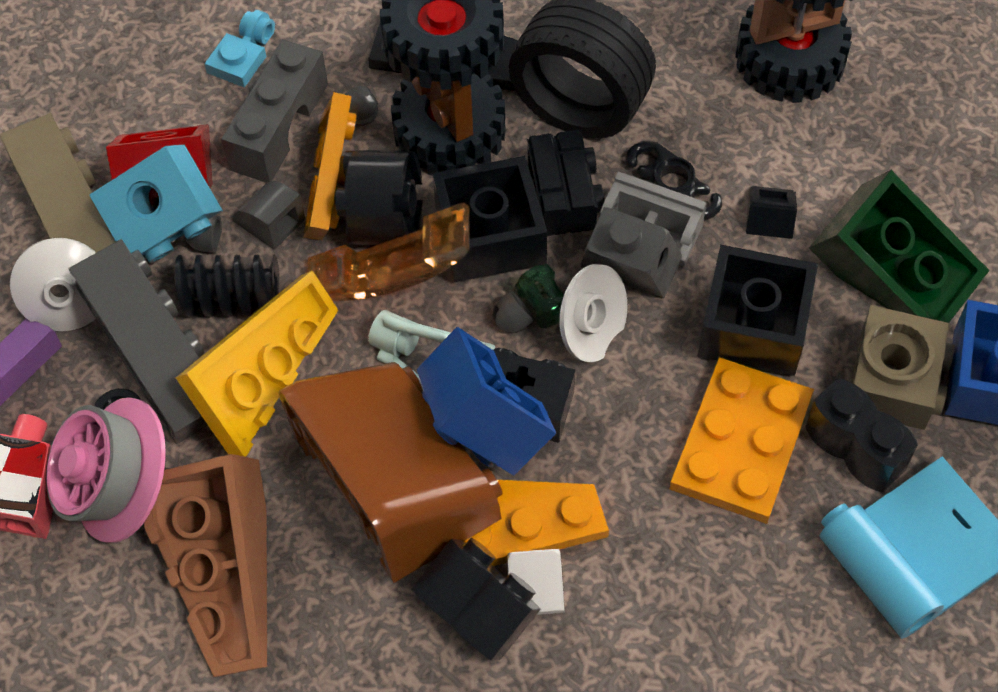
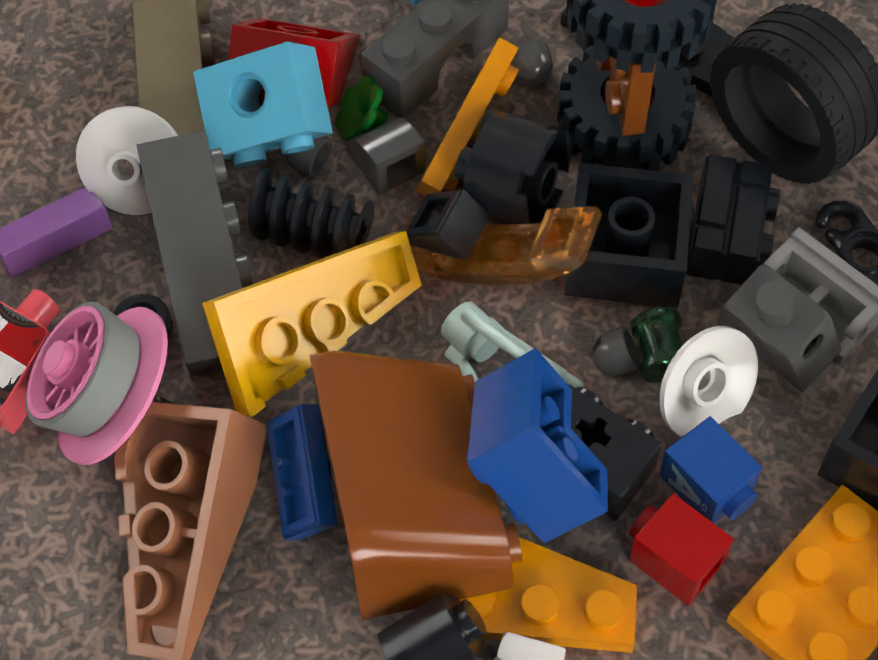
camera: 20 degrees right, 0 degrees up
(234, 184) = (360, 109): none -> green plant
(301, 487) = (301, 472): none -> blue plate
(344, 254) = (448, 223): none -> black slope
(615, 445) = (678, 547): none -> red brick
(619, 380) = (711, 472): none -> blue brick

